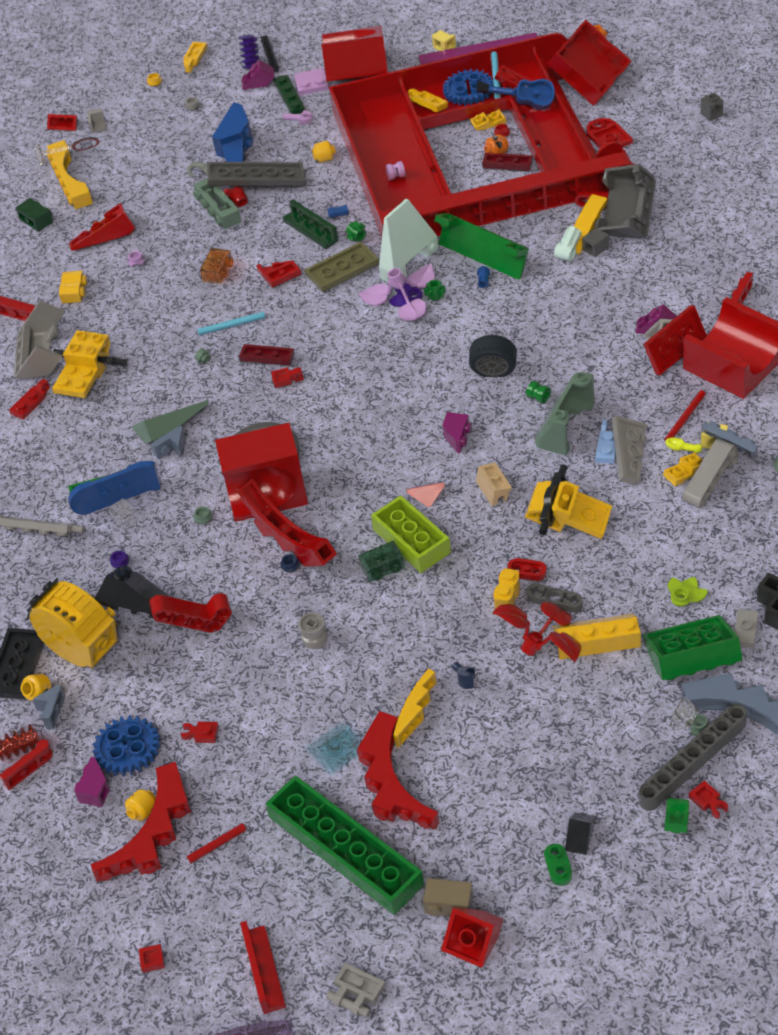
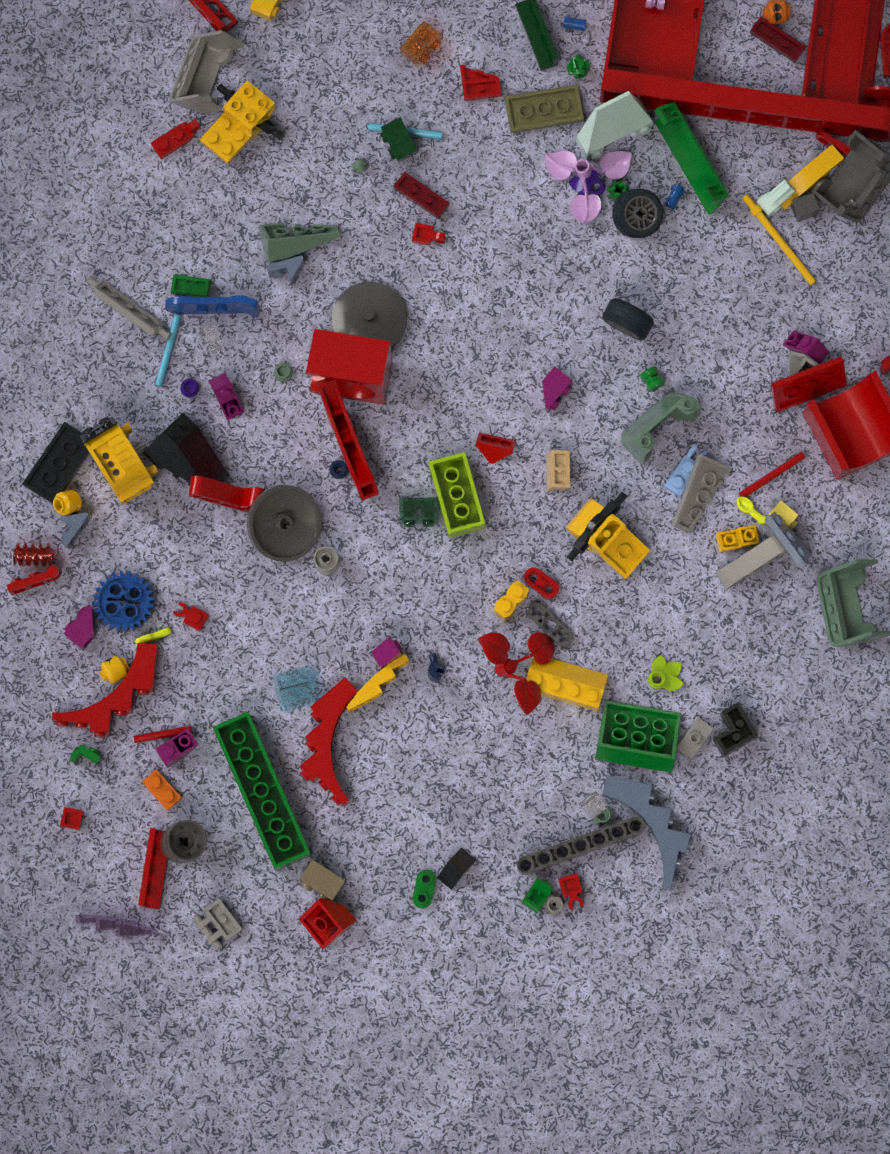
camera: 20 degrees right, 30 degrees up
(87, 543) = (168, 350): none -> medium azure bar
(143, 890) = (91, 754): none -> green bracket
(157, 550) = (226, 396): none -> magenta slope
(180, 755) = (153, 636): none -> neon yellow piece
(228, 325) = (398, 139): none -> dark green brick
(236, 844) = (177, 748): none -> magenta slope
(237, 892) = (162, 790): none -> orange plate
(257, 615) = (284, 523): none -> dark grey dish
(282, 920) = (194, 837): none -> dark grey wheel
(409, 673) = (387, 652): none -> magenta slope
(459, 292) = (649, 210): none -> wheel
(558, 261) = (756, 211): none -> yellow bar
(698, 814) = (554, 899): none -> light grey plate

